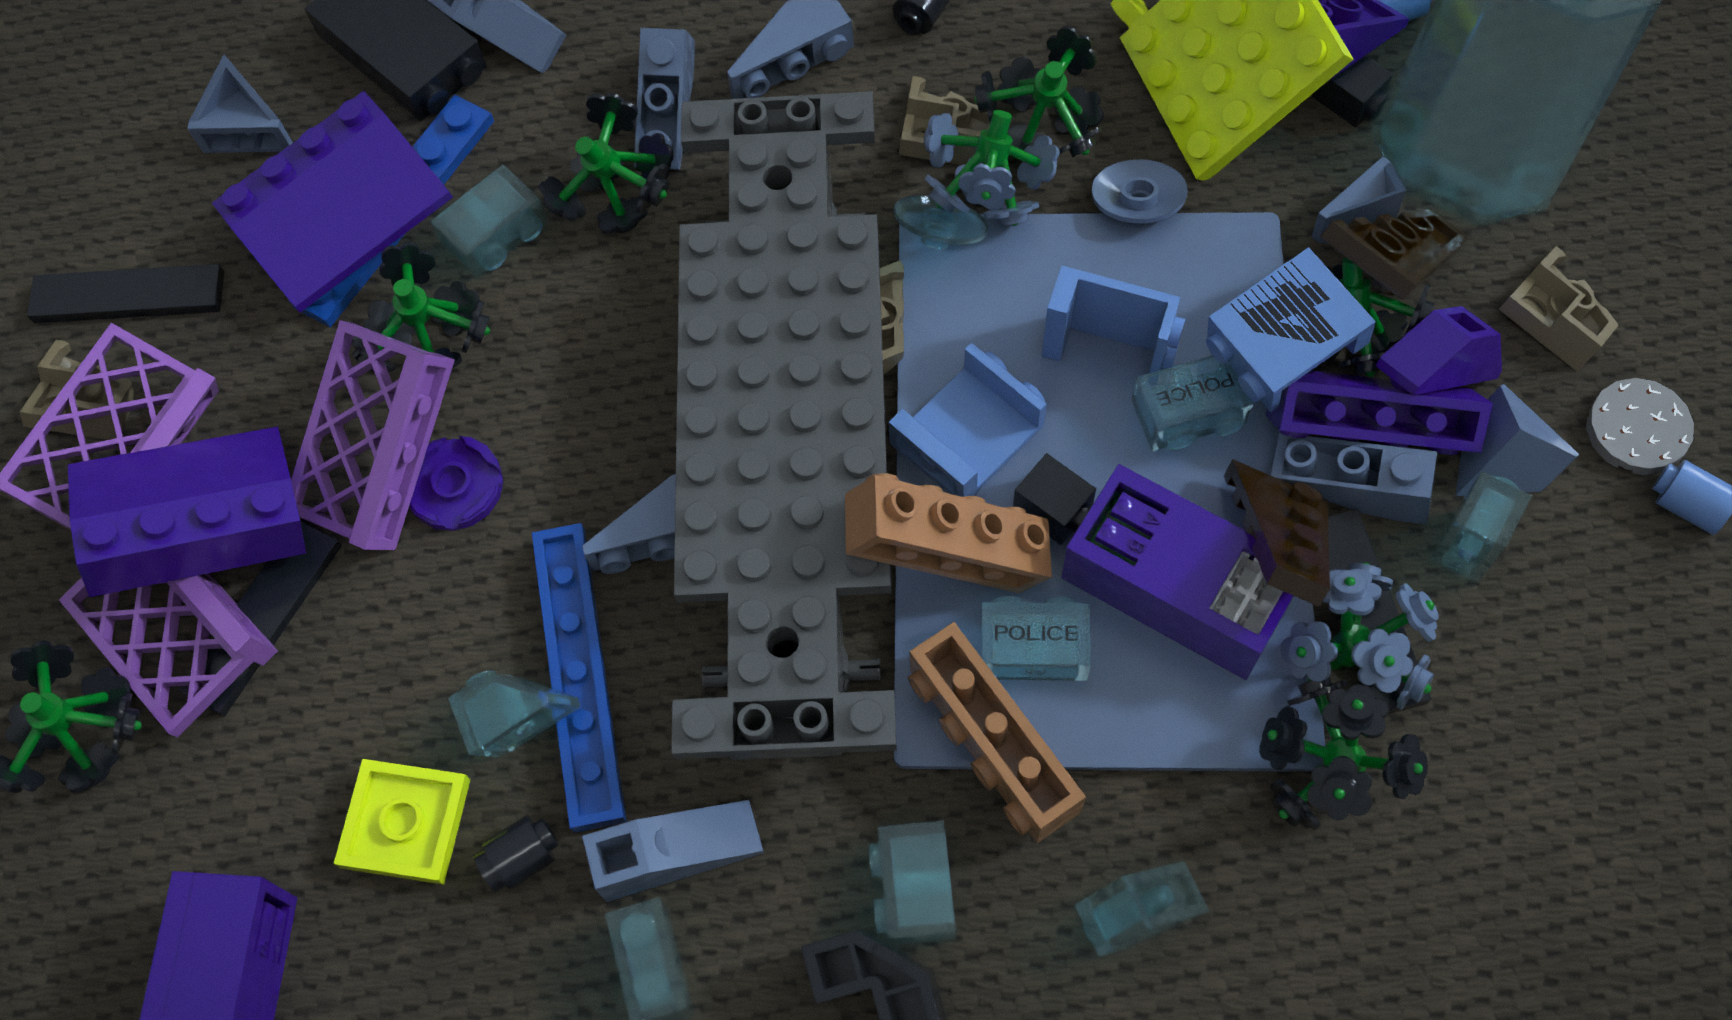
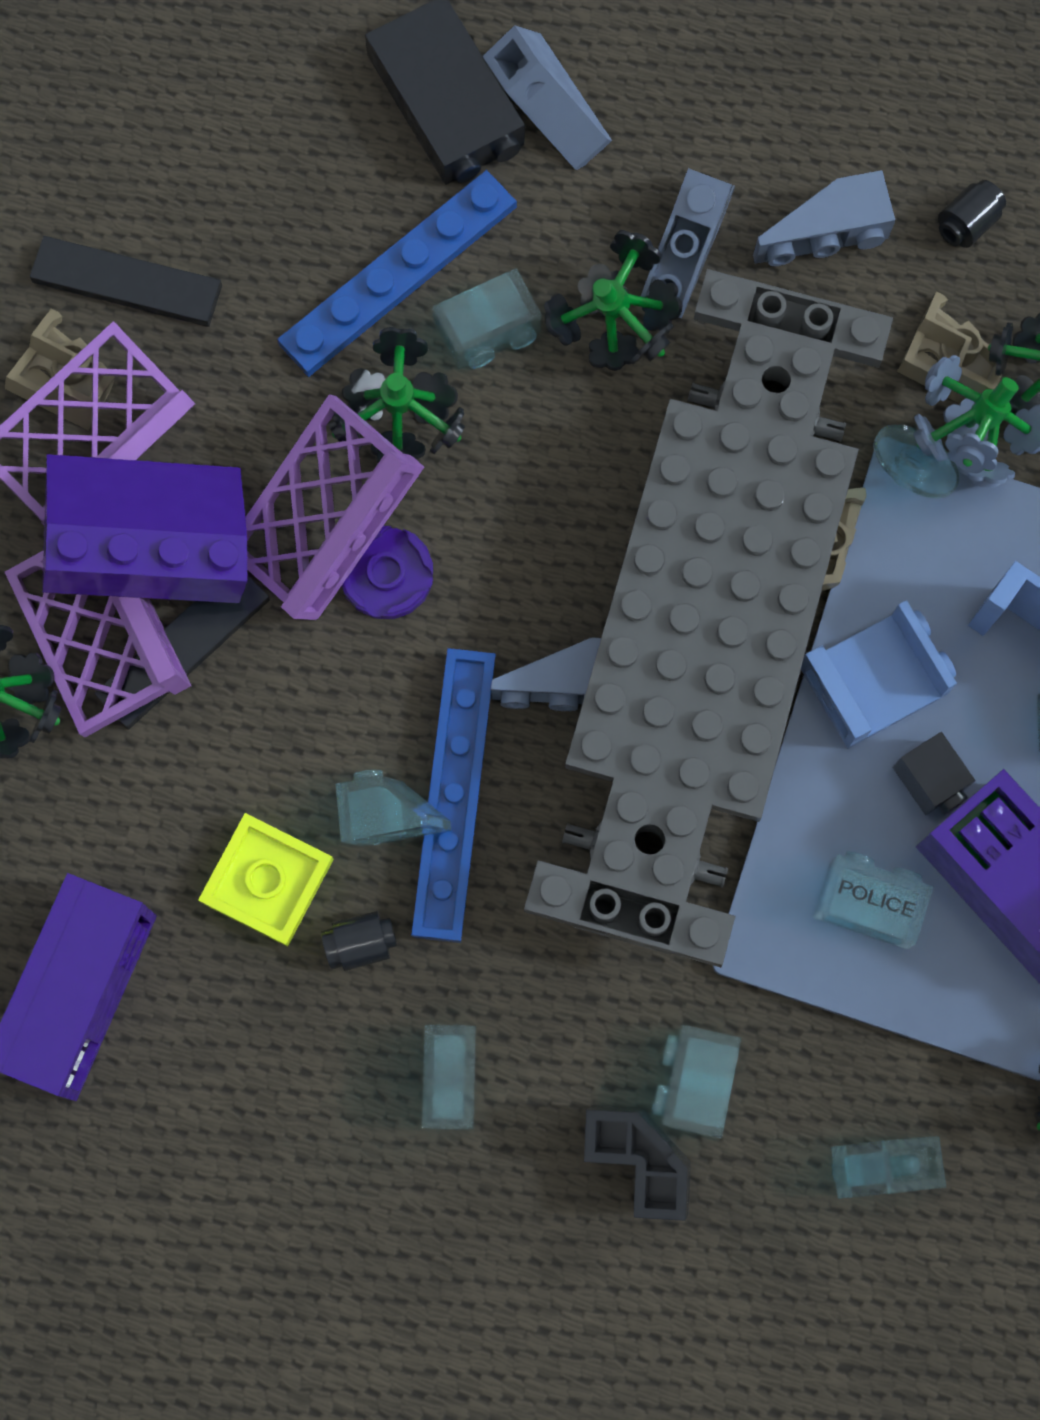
camera: 10 degrees right, 10 degrees up
(235, 116) = (272, 132): sand blue slope -> none
(331, 200) = (345, 255): dark purple slope -> none
(670, 847) = (497, 981): sand blue slope -> none
(946, 534) = (827, 785): medium nougat brick -> none
(995, 732) = (810, 974): medium nougat brick -> none

